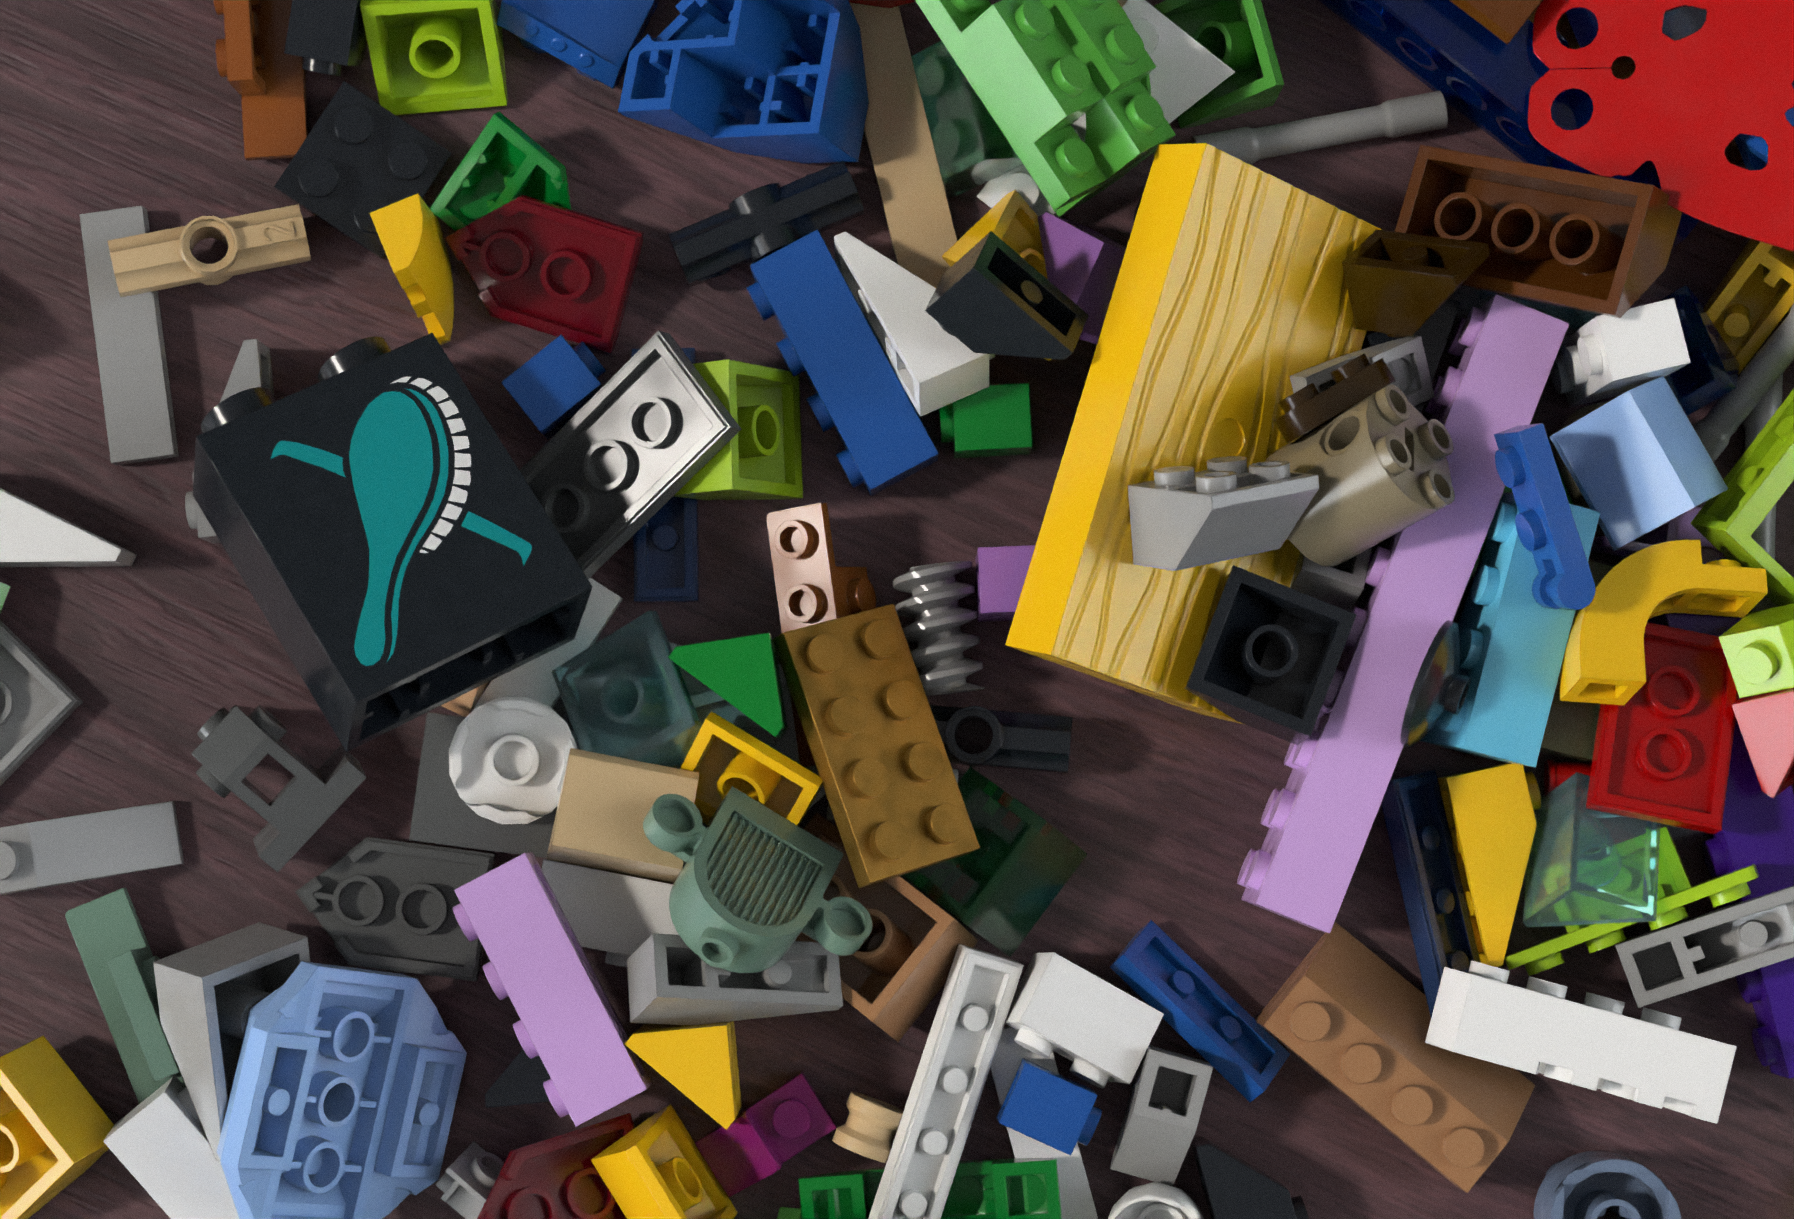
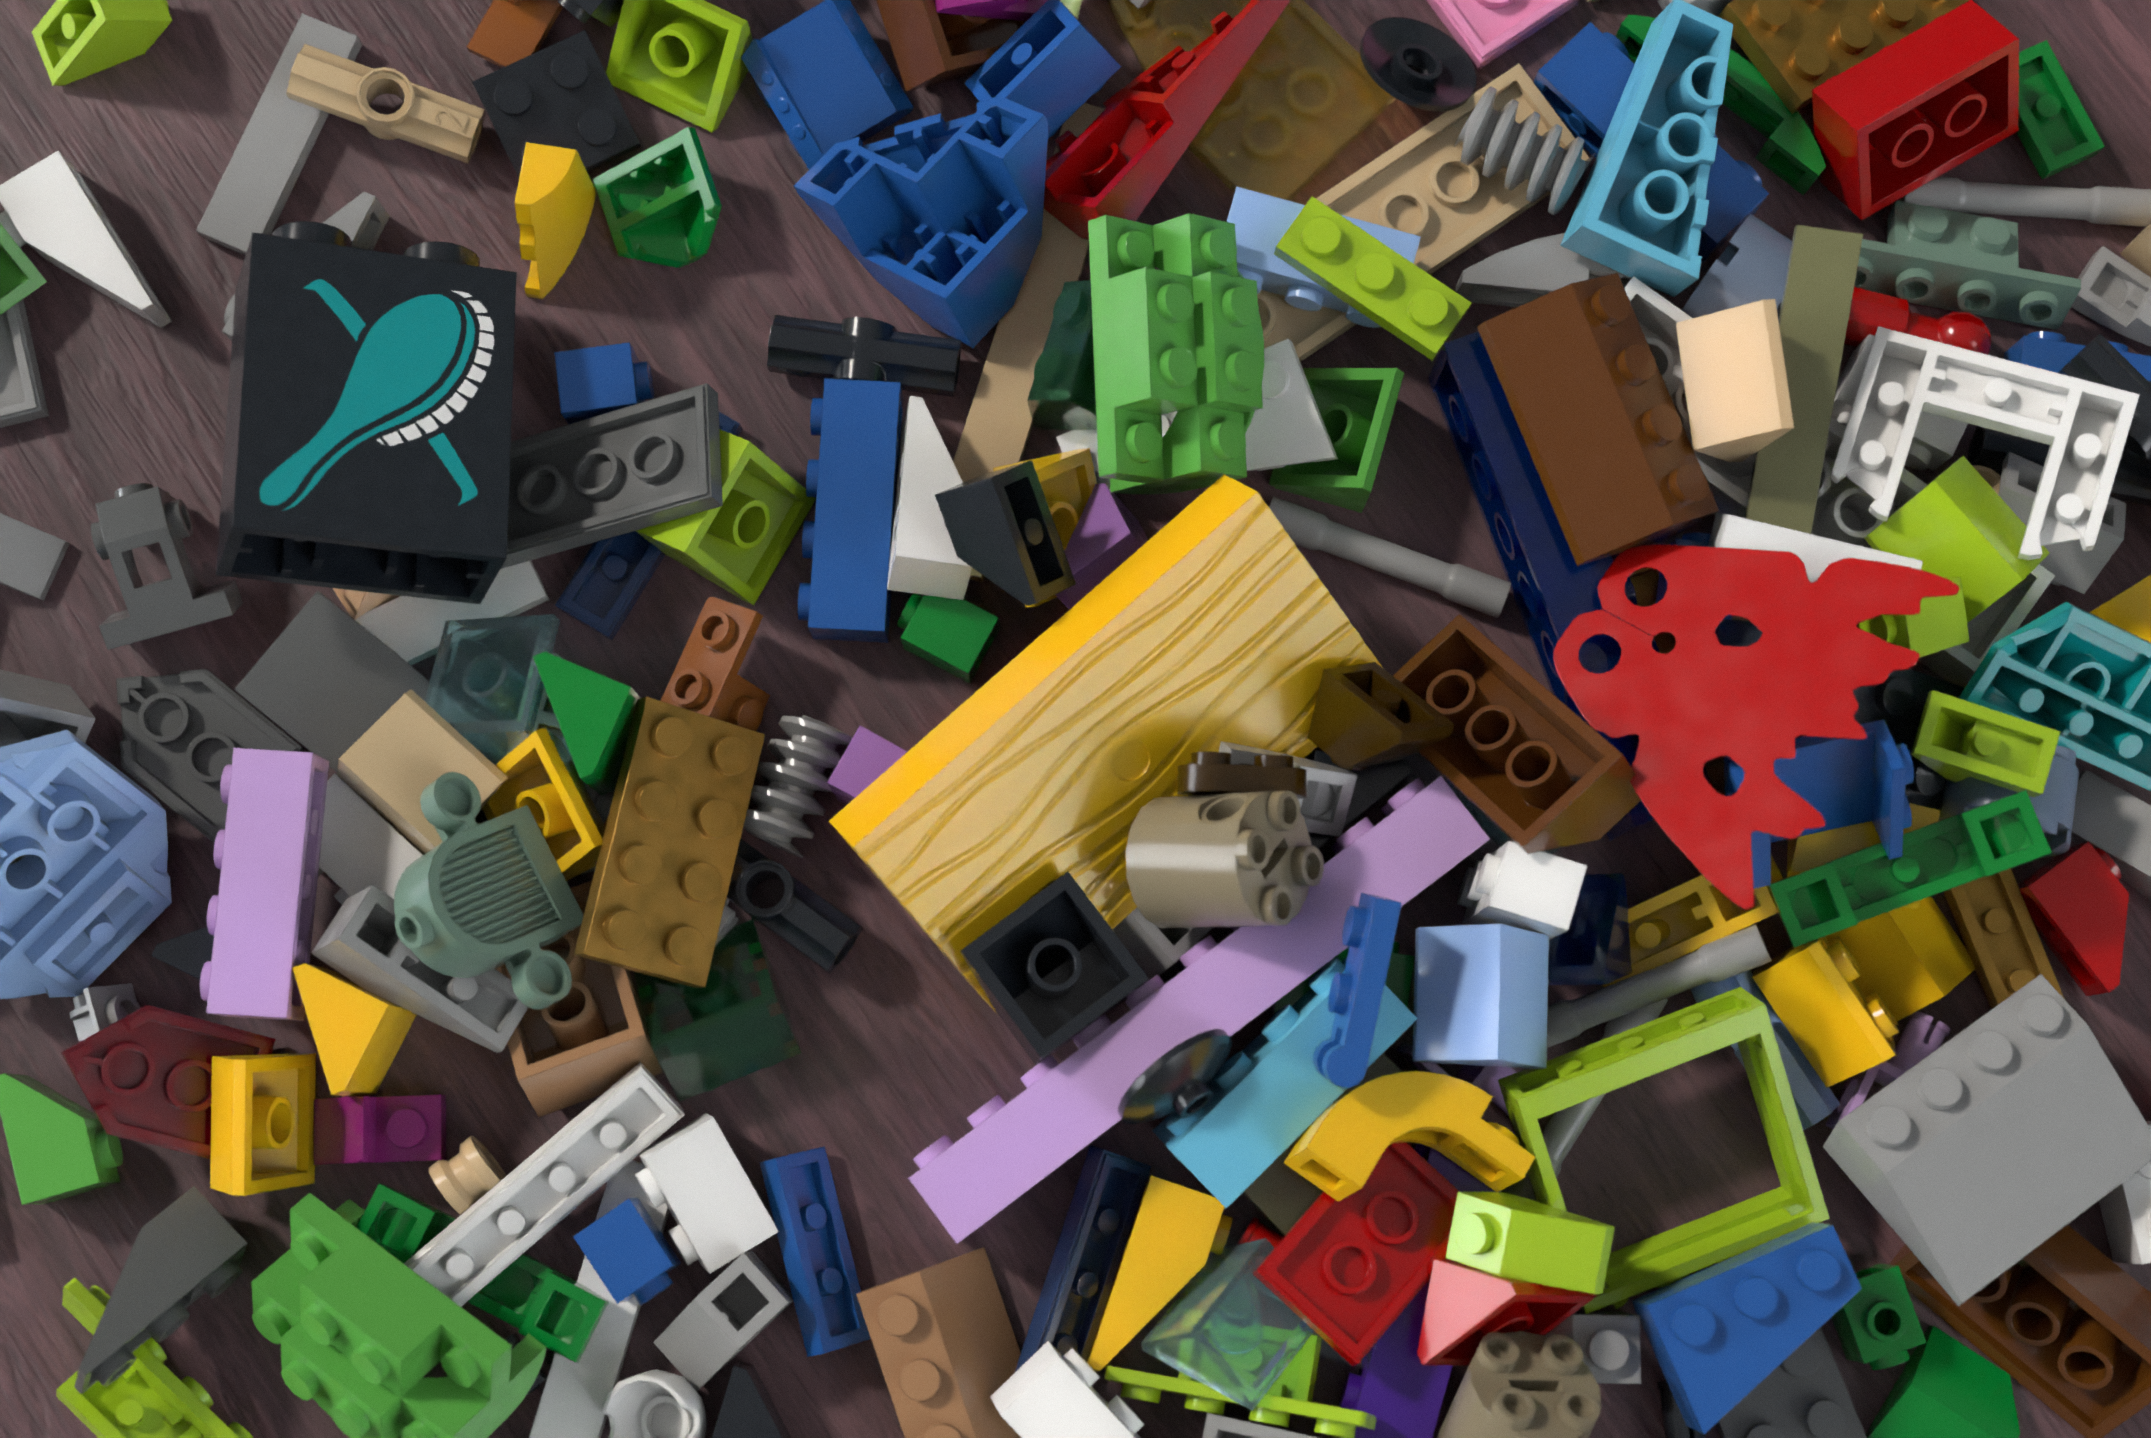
camera: 30 degrees right, 5 degrees down
(510, 759) = (360, 669): white tile -> none
(551, 269) = (661, 287): dark red tile -> none
(1216, 512) = (1072, 812): light grey slope -> none

